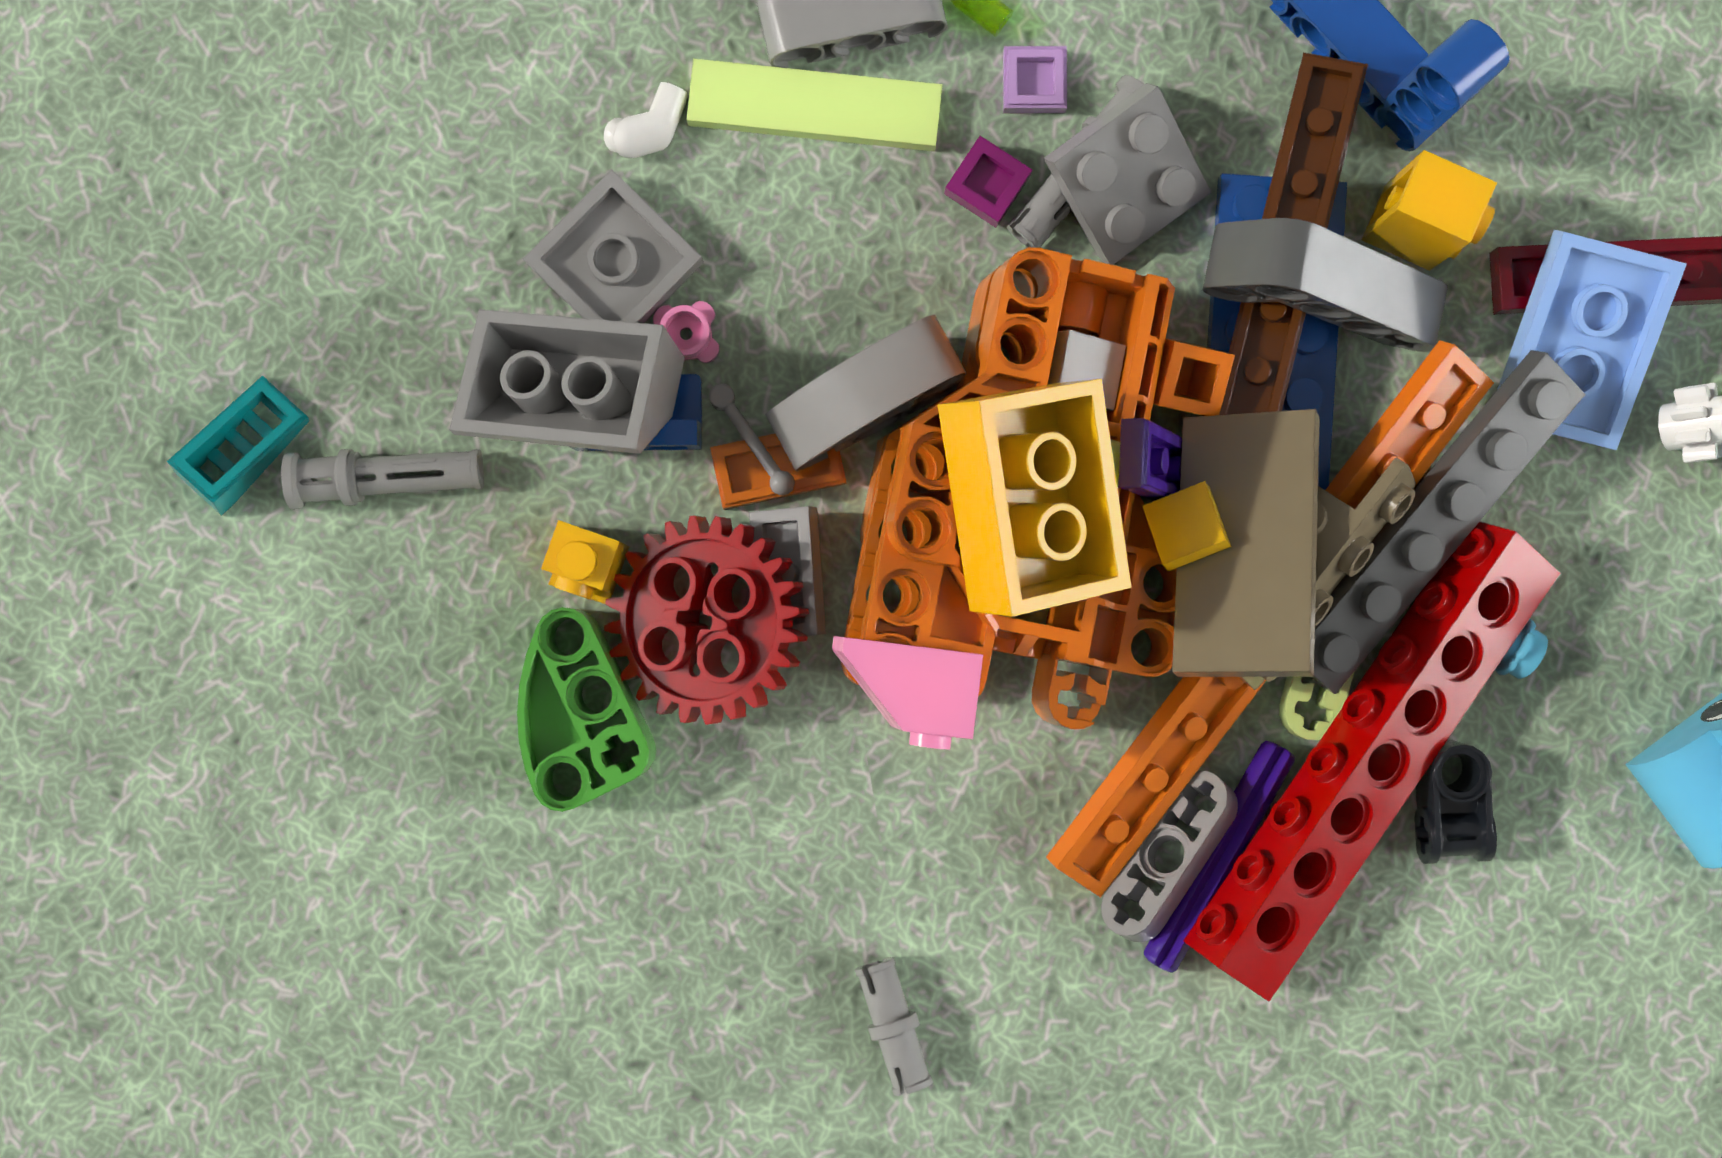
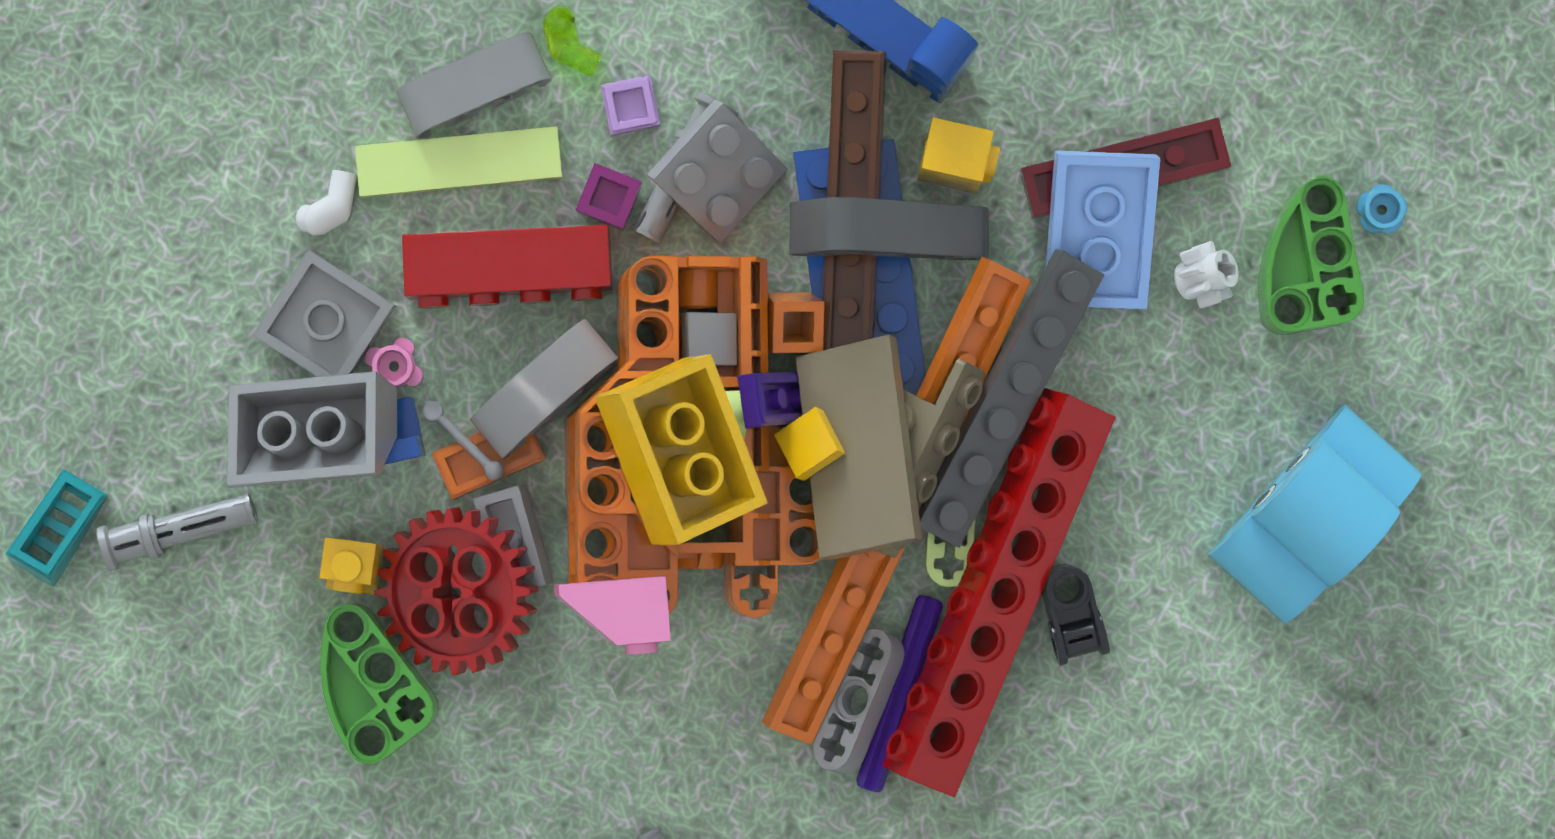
camera: 15 degrees left, 0 degrees up
(848, 236) = (507, 263): none -> red brick
(1524, 653) = (1102, 482): medium azure plate -> none

